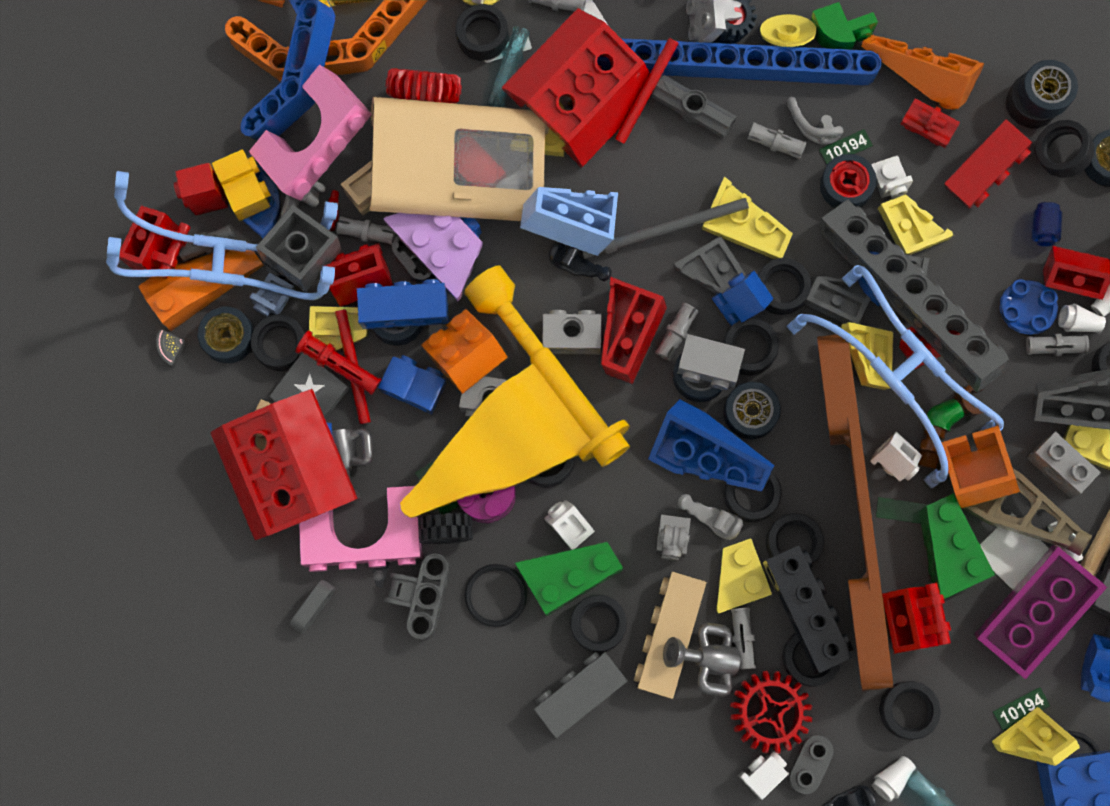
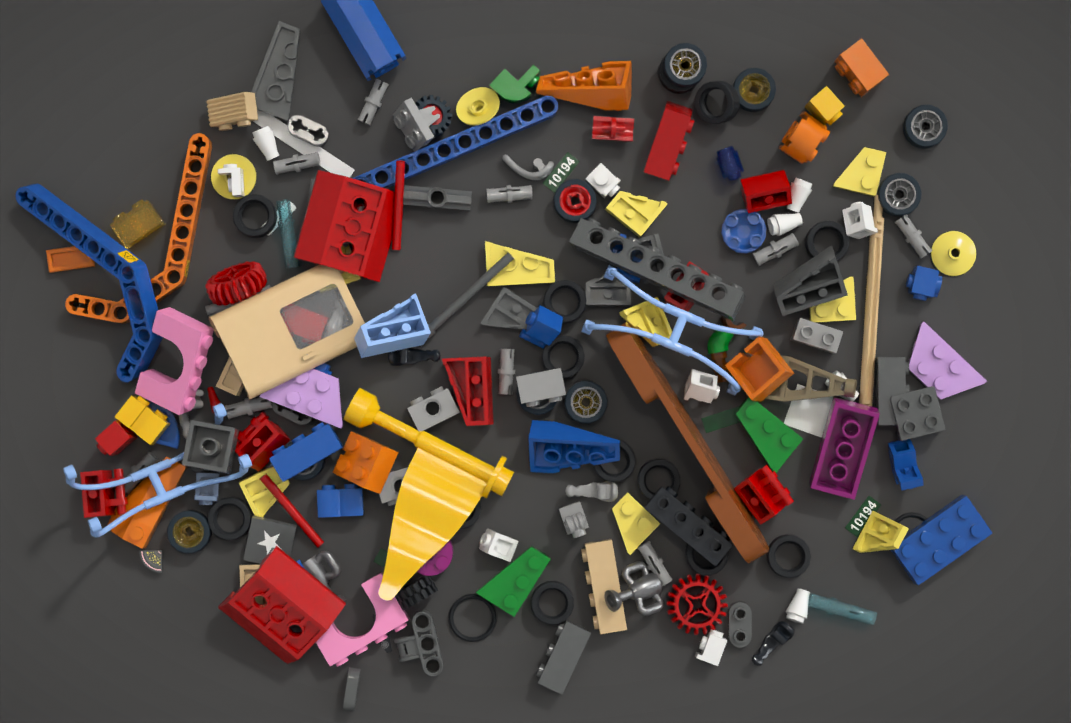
camera: 35 degrees left, 10 degrees up
(326, 355) = (269, 514): red pin -> none

